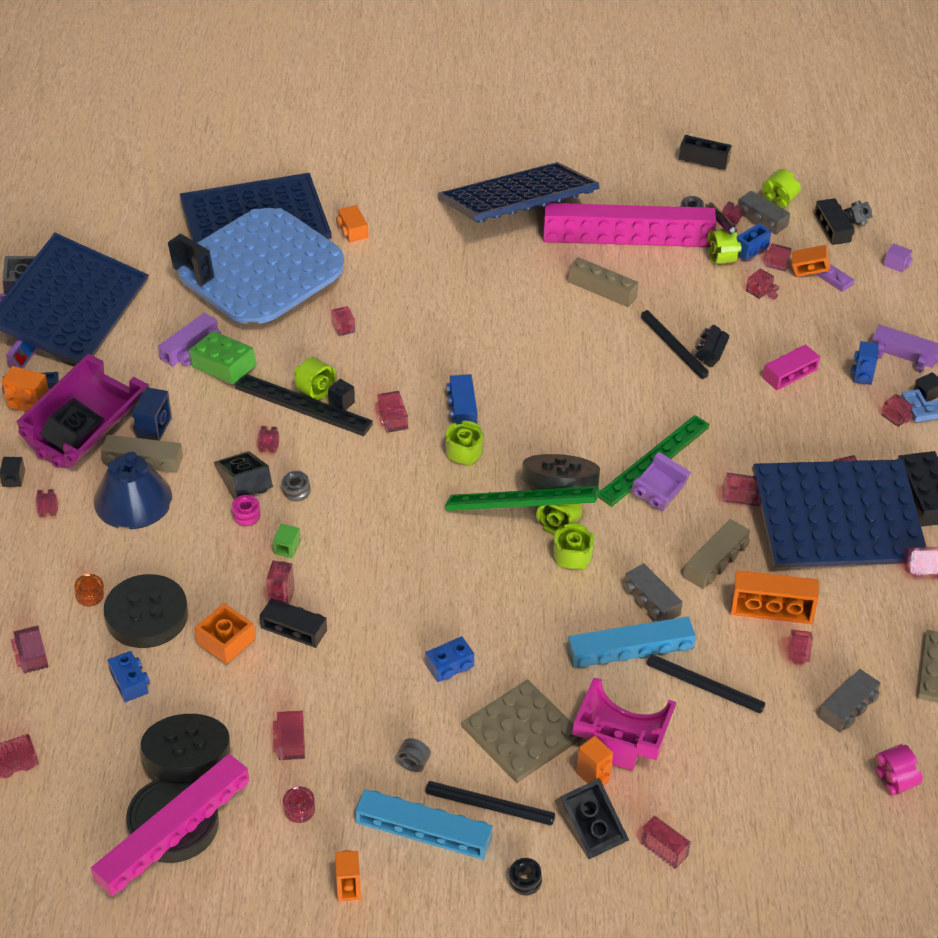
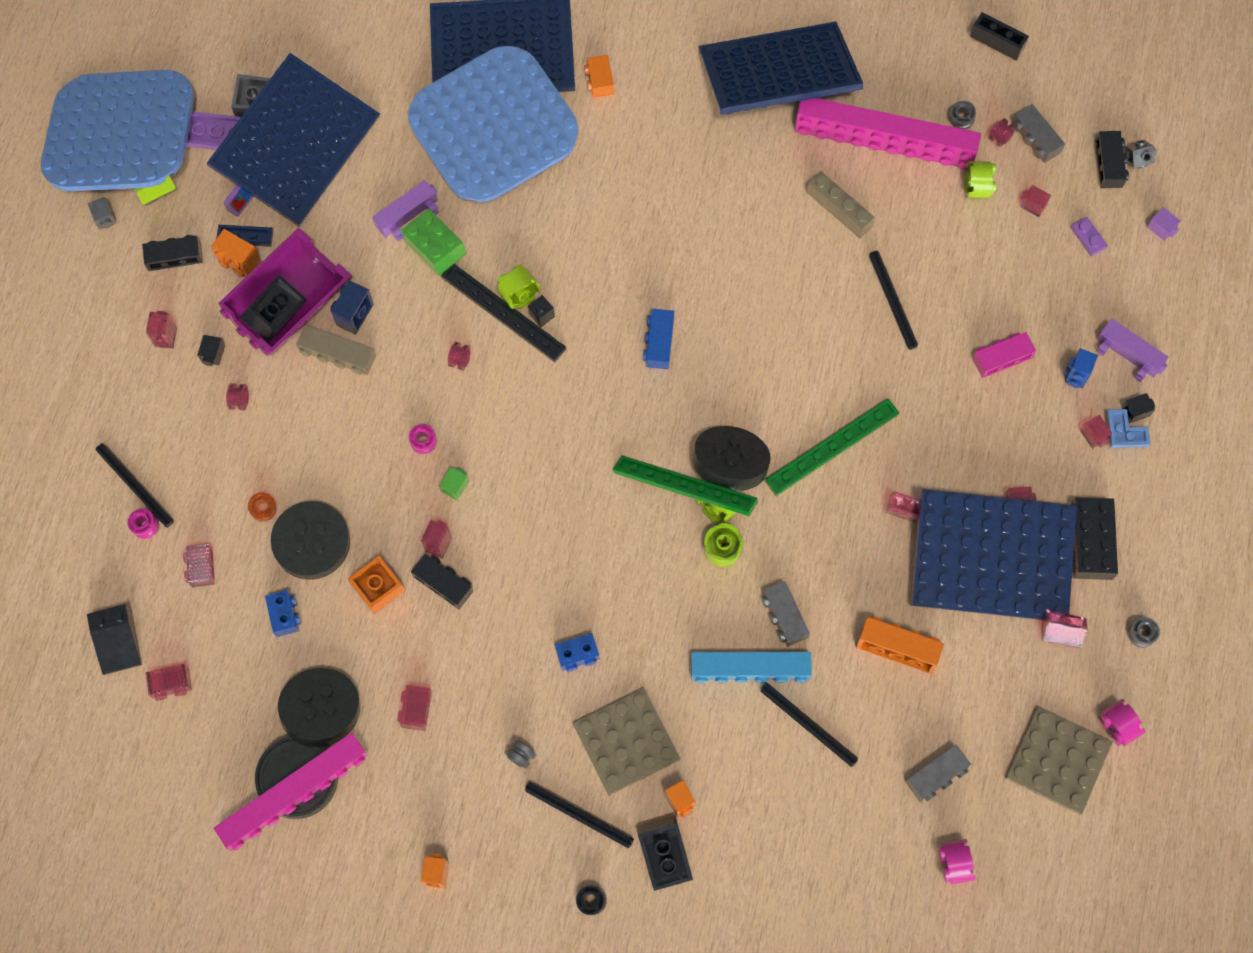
camera: 15 degrees right, 25 degrees up
(132, 493) = (320, 401): dark blue cone -> none
(193, 256) = (429, 126): black panel -> none
(244, 474) = (428, 392): black slope -> none
(295, 812) = (402, 777): clear pink wheel -> none
(296, 486) = (472, 410): flat silver wheel -> none
(343, 321) = (563, 211): clear pink brick -> none
(392, 411) = (586, 340): clear pink brick -> none
(424, 824) = (514, 827): dark azure brick -> none
(464, 442) = (646, 386): lime brick -> none
(621, 730) = (714, 766): dark pink piece -> none
(661, 482) = (828, 481): medium lavender panel -> none
(665, 842) = (723, 891): clear pink brick -> none
(711, 345) = (929, 313): black brick -> none
(716, 554) = (860, 578): dark tan brick -> none
(722, 219) = (985, 142): axle -> none
(754, 241) = (1013, 177): blue brick -> none
(762, 283) = (1006, 236): clear pink brick -> none
(781, 188) = (1065, 105): lime brick -> none
(800, 646) = (908, 704): clear pink brick -> none
(811, 260) = (1067, 215): orange brick -> none

